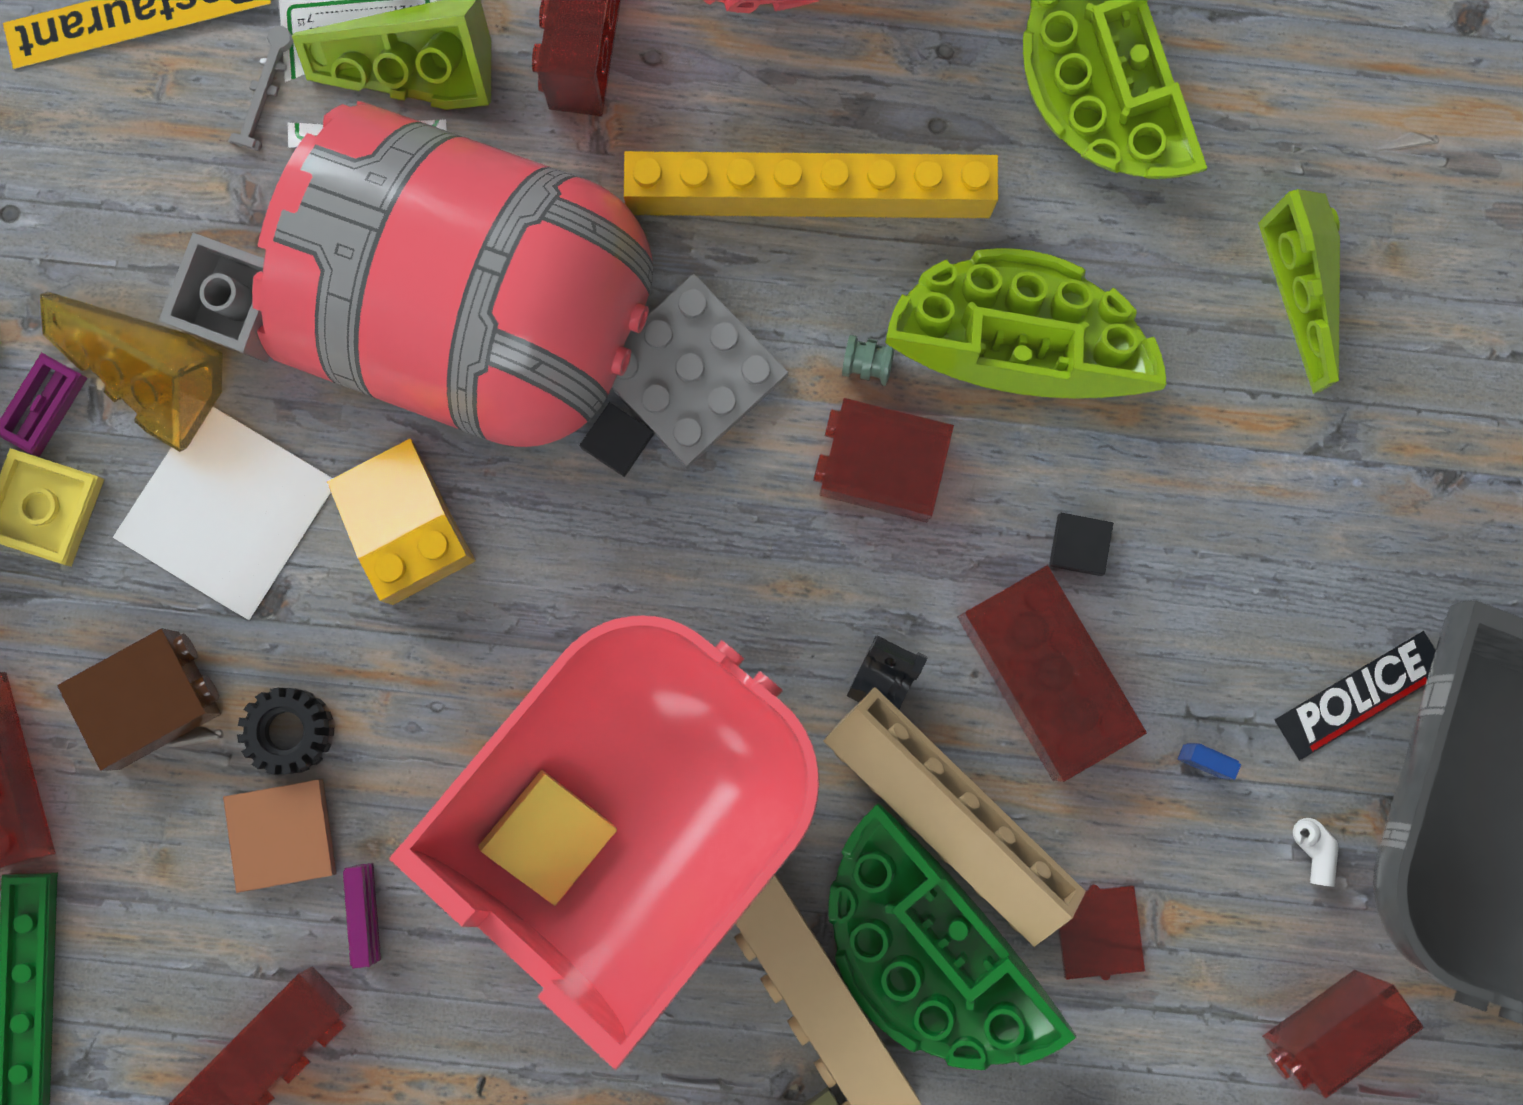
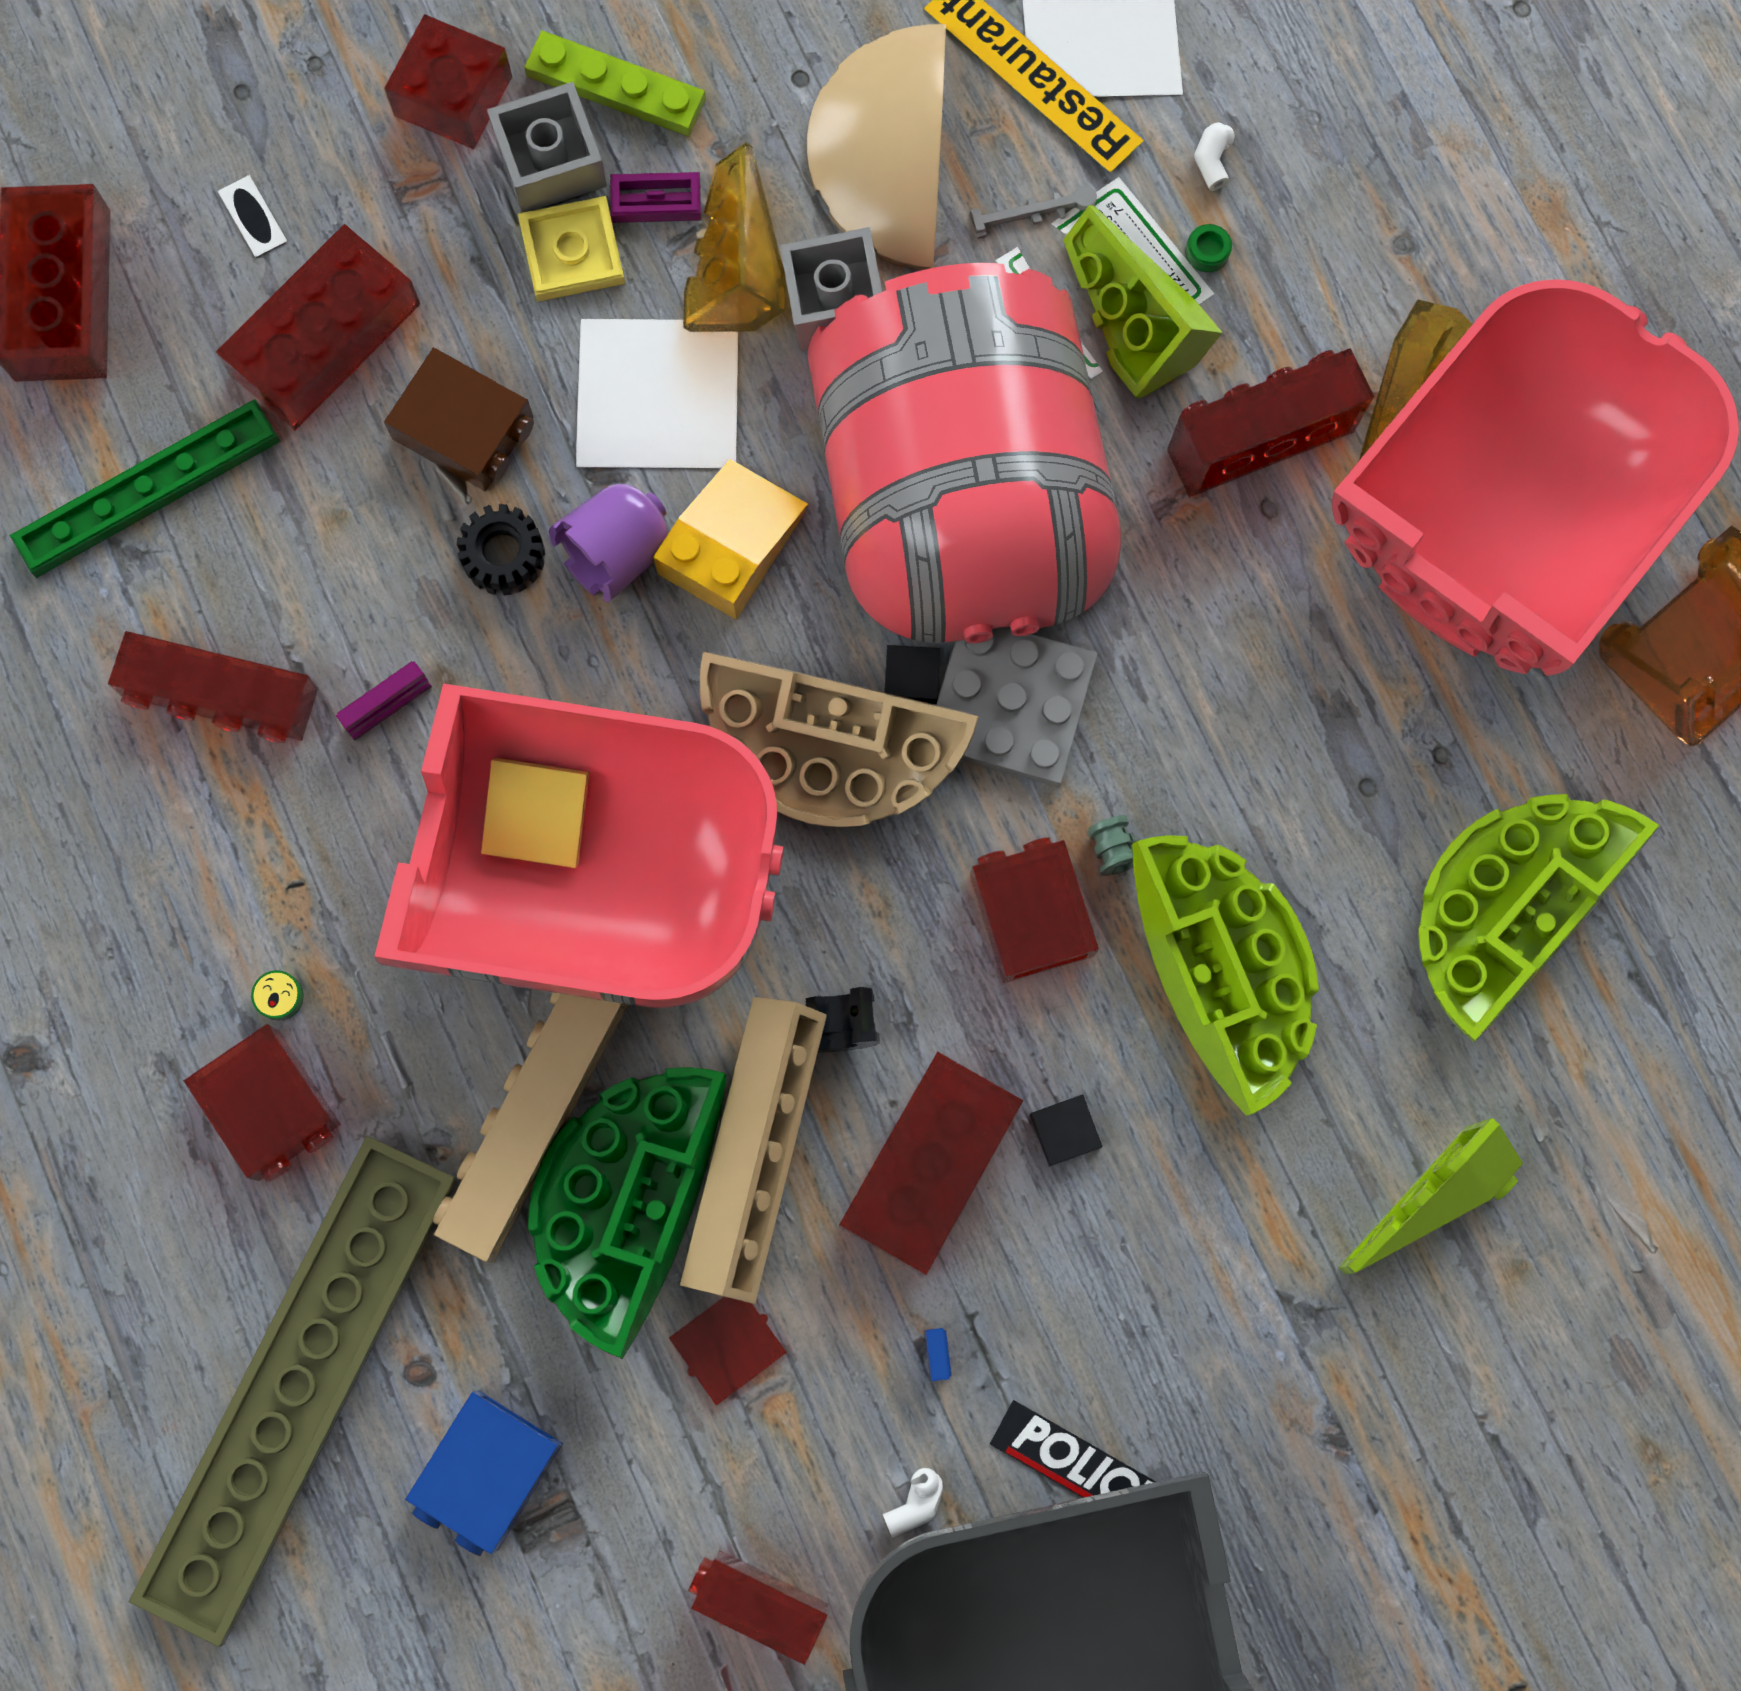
camera: 60 degrees right, 5 degrees down
(117, 178) = (880, 142): none -> tan brick
(279, 835) = (411, 597): nougat tile -> none
(338, 626) = (611, 538): none -> medium lavender cylinder
(640, 544) = (834, 746): none -> tan brick
(810, 184) = (1239, 705): yellow brick -> none

